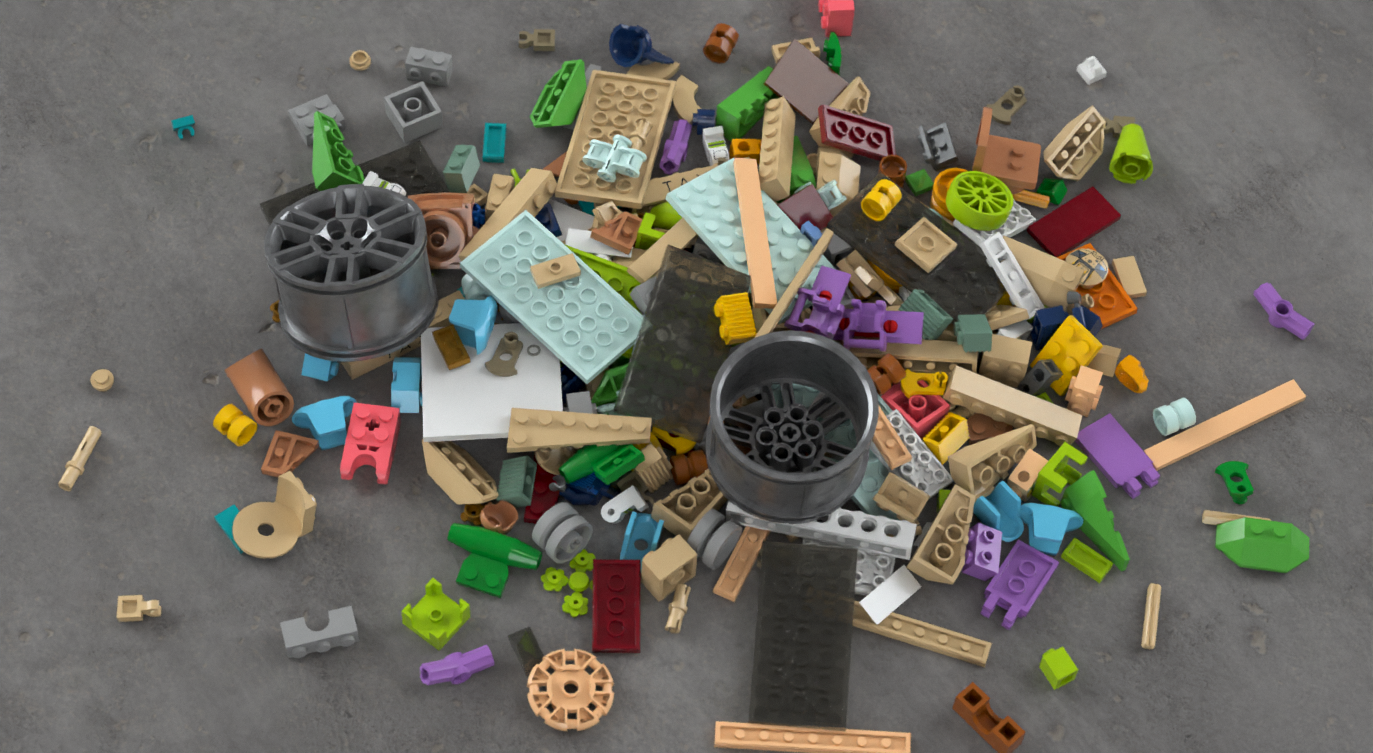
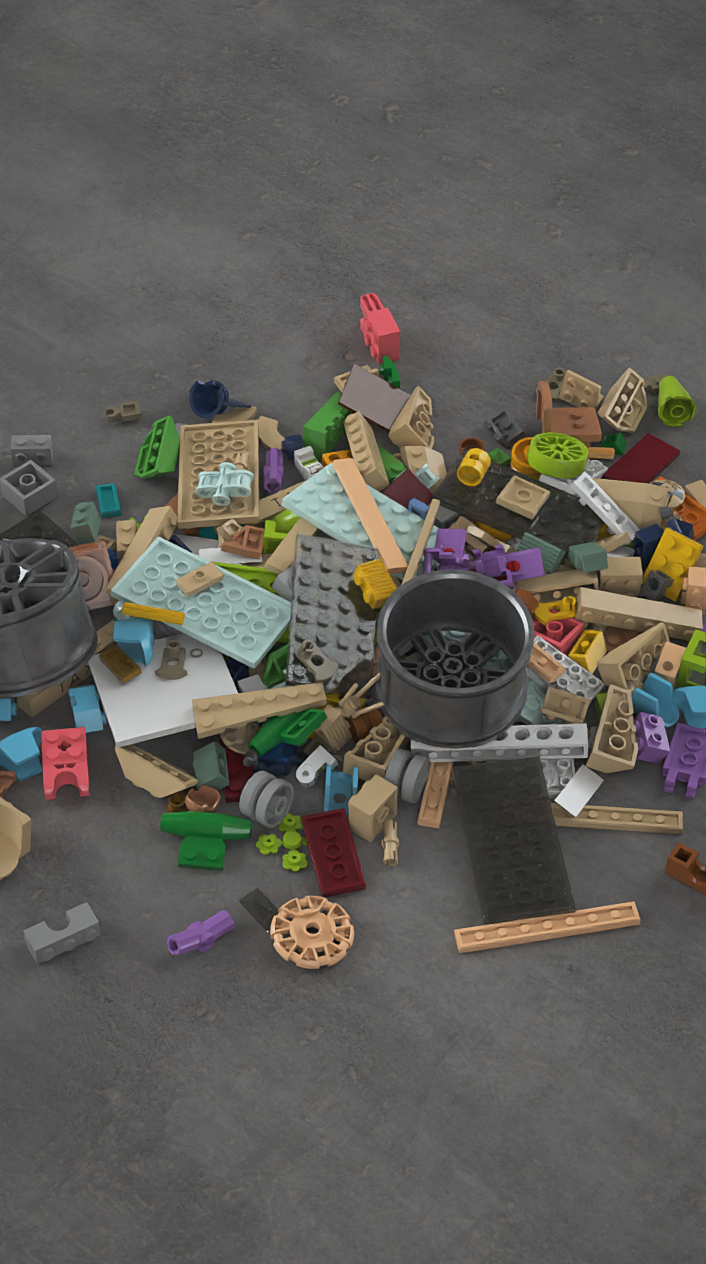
camera: 10 degrees left, 10 degrees down
(436, 616) = (168, 897): lime panel -> none
(496, 300) = (153, 613): none -> yellow axle
(651, 408) = (323, 672): none -> dark tan piece
(677, 446) = (351, 704): none -> tan plant
(720, 44) = (288, 384): dark orange wheel -> none
(855, 133) = (429, 428): dark red tile -> none
(1032, 123) = (580, 391): none -> tan bracket
(1091, 70) = (616, 346): white tile -> none

